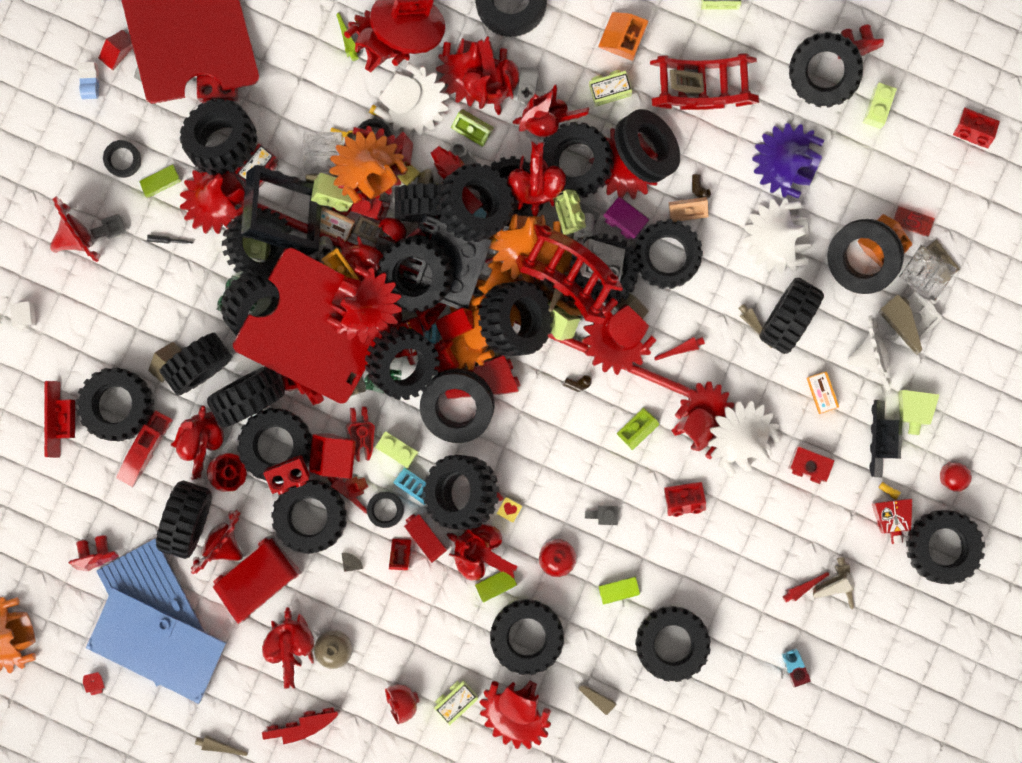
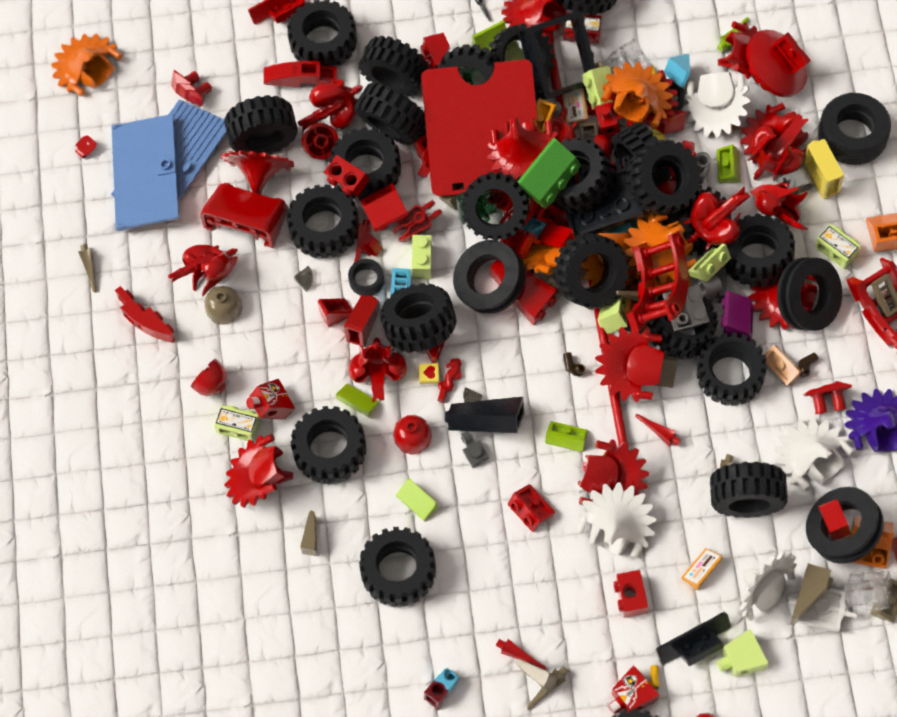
camera: 55 degrees right, 20 degrees down
(205, 318) = (434, 49): none -> red slope
(213, 254) = (485, 36): none -> lime slope
(358, 111) = (678, 69): none -> medium azure slope
(410, 300) = (549, 173): none -> bright green slope
(455, 663) = (270, 401): none -> red torso
(530, 501) = (452, 374): none -> red animal
(533, 51) = (823, 168): none -> light yellow window
(555, 488) = (470, 395): none -> clear smoke tile
(583, 486) = (492, 415): none -> black slope
(736, 182) = (835, 389): none -> red connector
(857, 262) = (835, 520): none -> red slope

